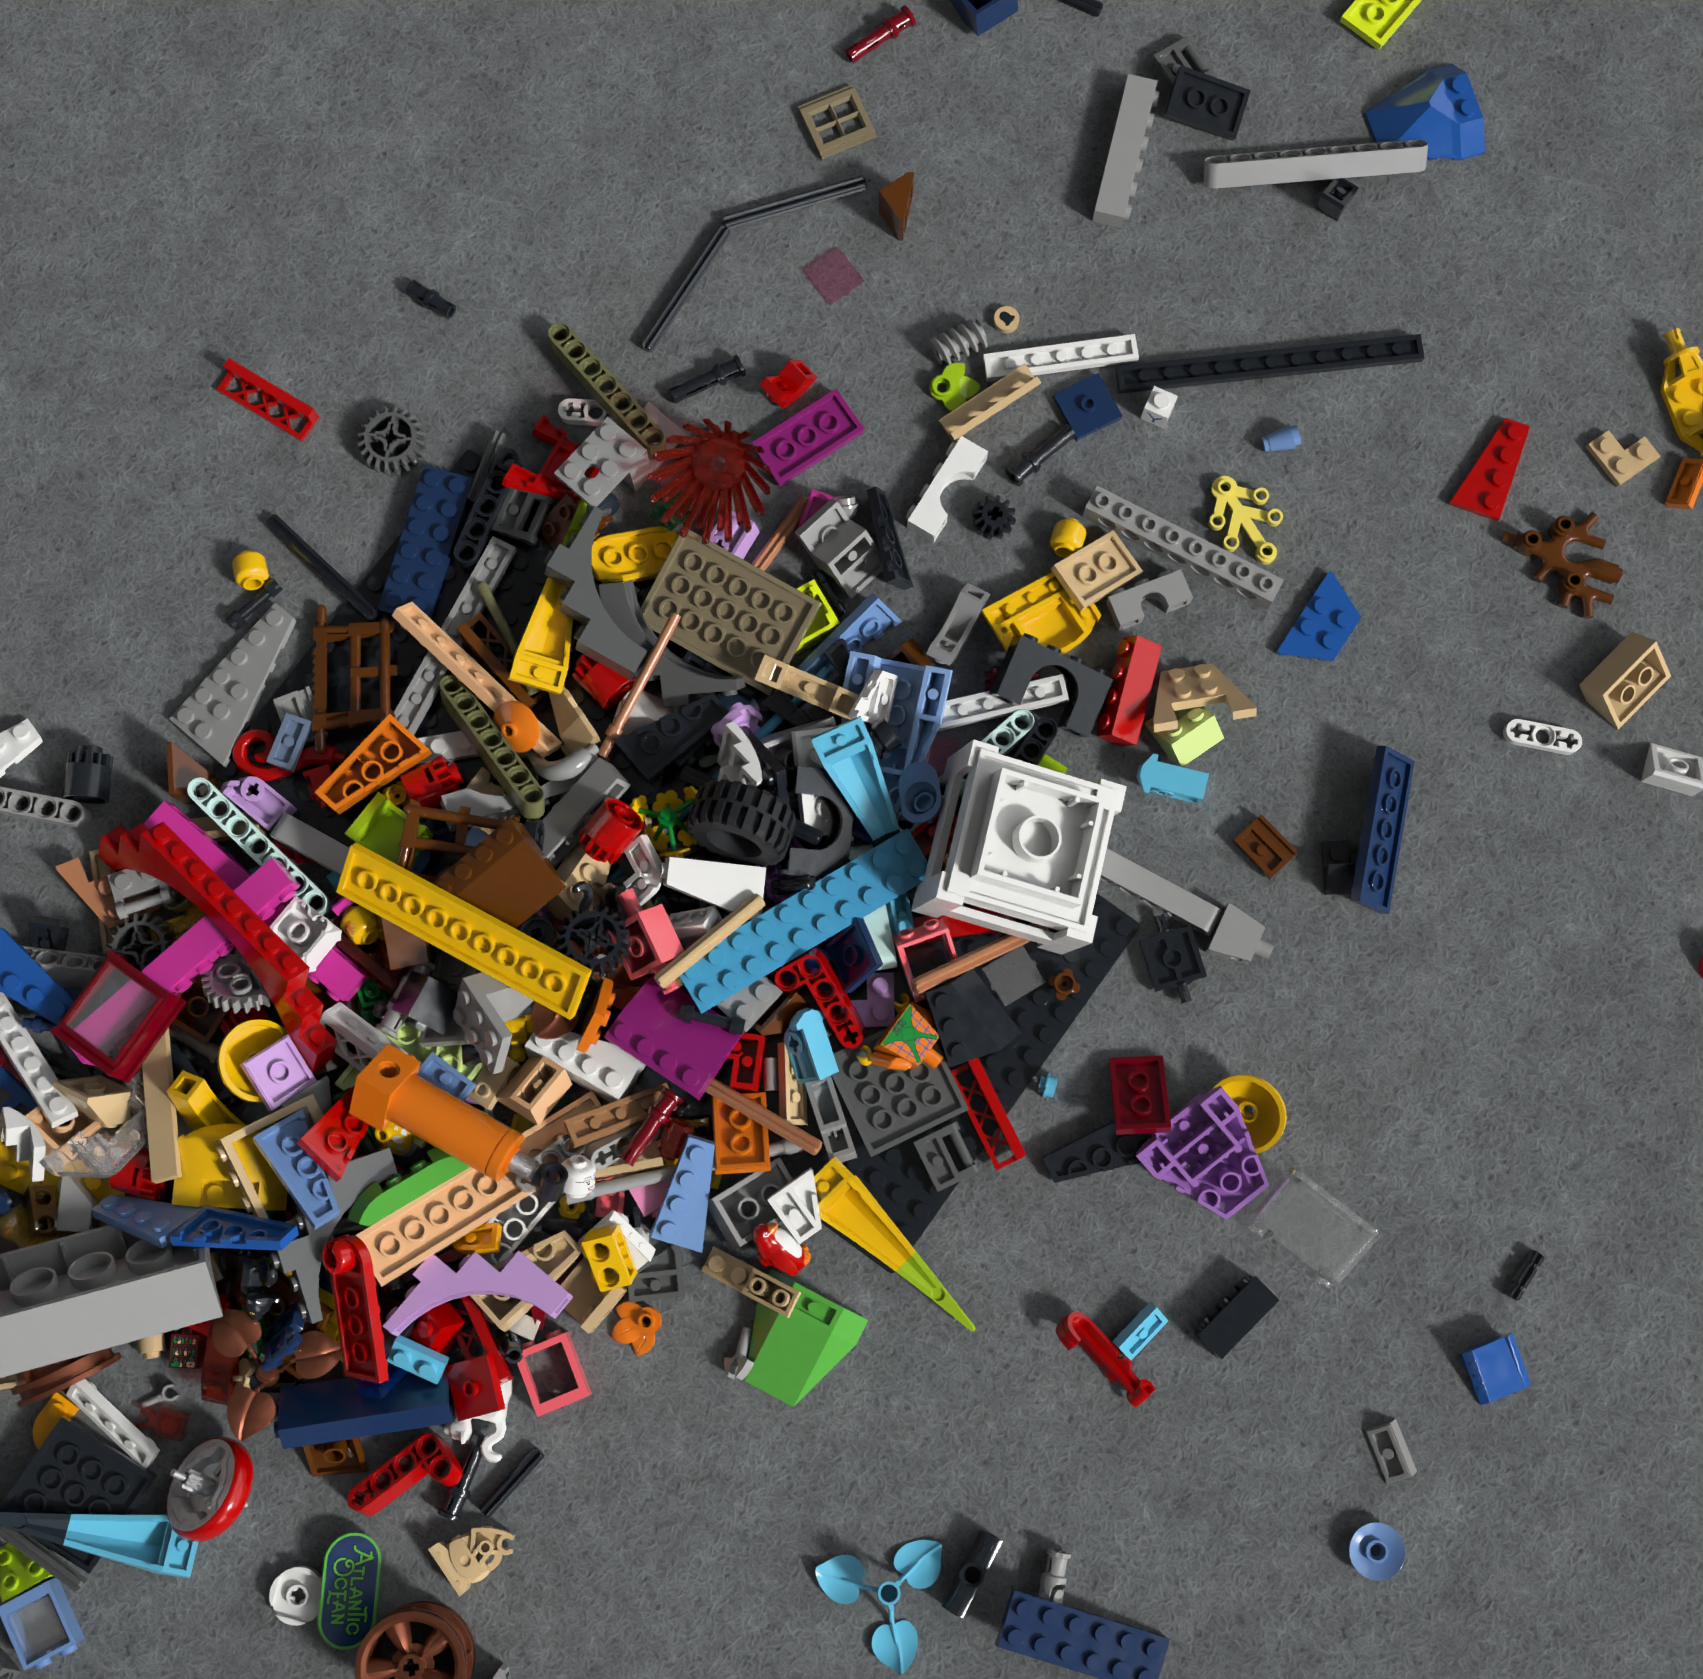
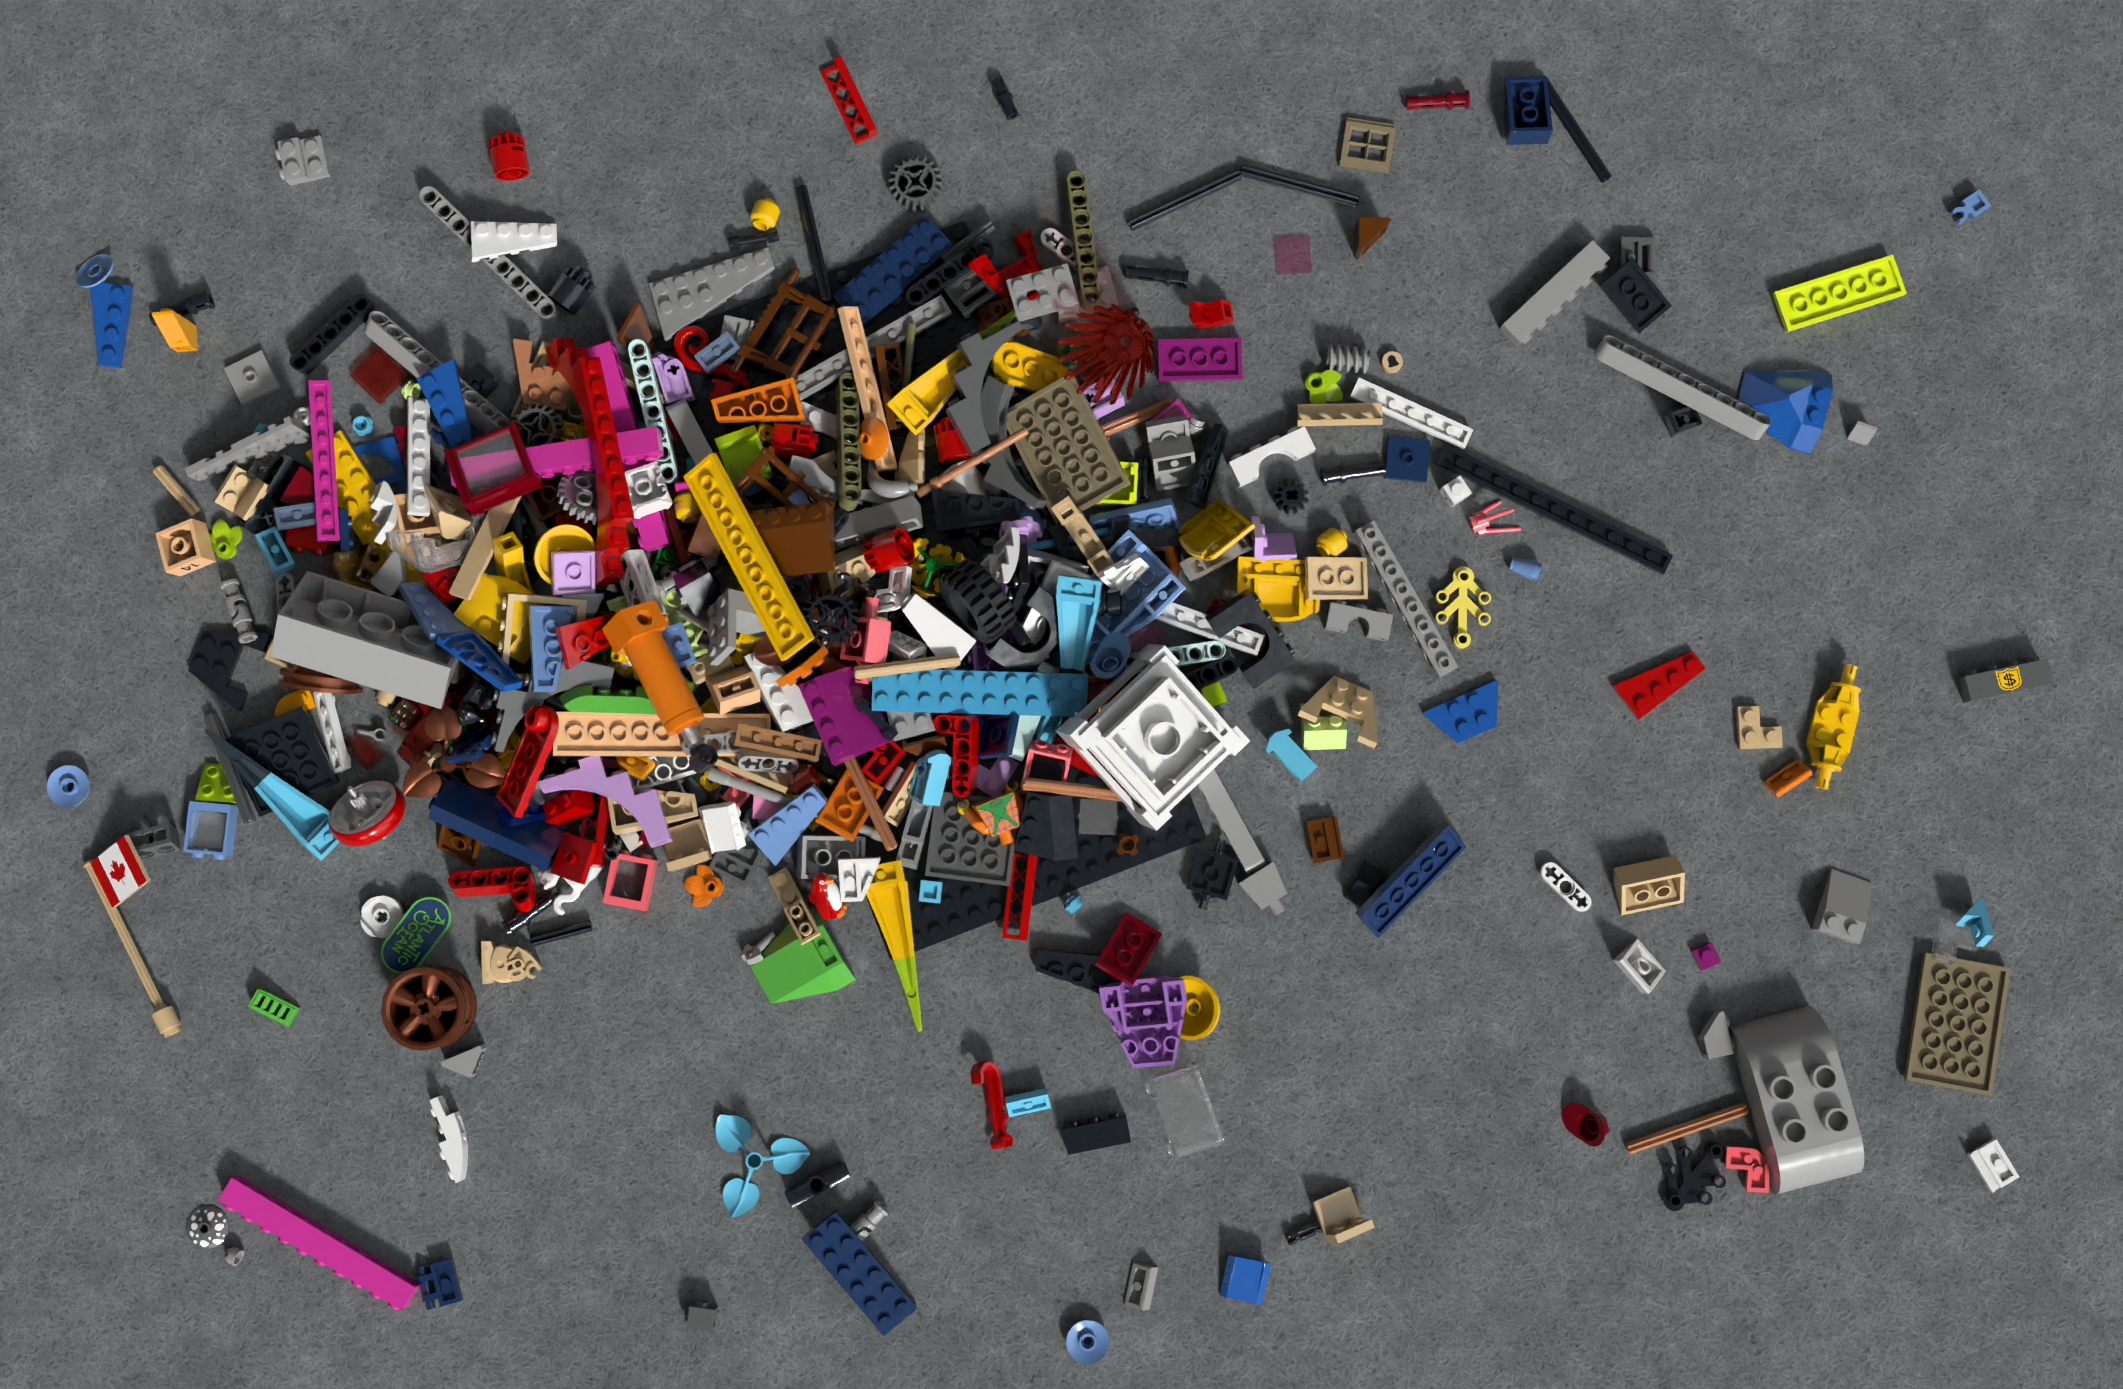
camera: 35 degrees right, 5 degrees up
(132, 883) = (553, 381): light grey plate -> none
(417, 1359) = (548, 816): medium azure plate -> none
(580, 1176) = (725, 766): white head -> none
(615, 1256) = (715, 832): yellow brick -> none
(658, 1114) = (801, 758): dark red pin -> none
(792, 884) = (987, 663): black axle -> none
(888, 1170) = (930, 891): none -> medium azure plate
(938, 1160) = (968, 905): dark grey plate -> none
(940, 598) = (1213, 531): none -> yellow slope
(1007, 579) = (1271, 545): none -> lavender bracket
(1129, 691) = (1302, 675): red brick -> none
(1204, 422) = (1479, 521): none -> coral plant
(1521, 99) = (1861, 432): none -> light grey slope
(1552, 1234) = (1340, 1216): none -> tan bracket
(1555, 561) = (1658, 772): reddish brown plant -> none

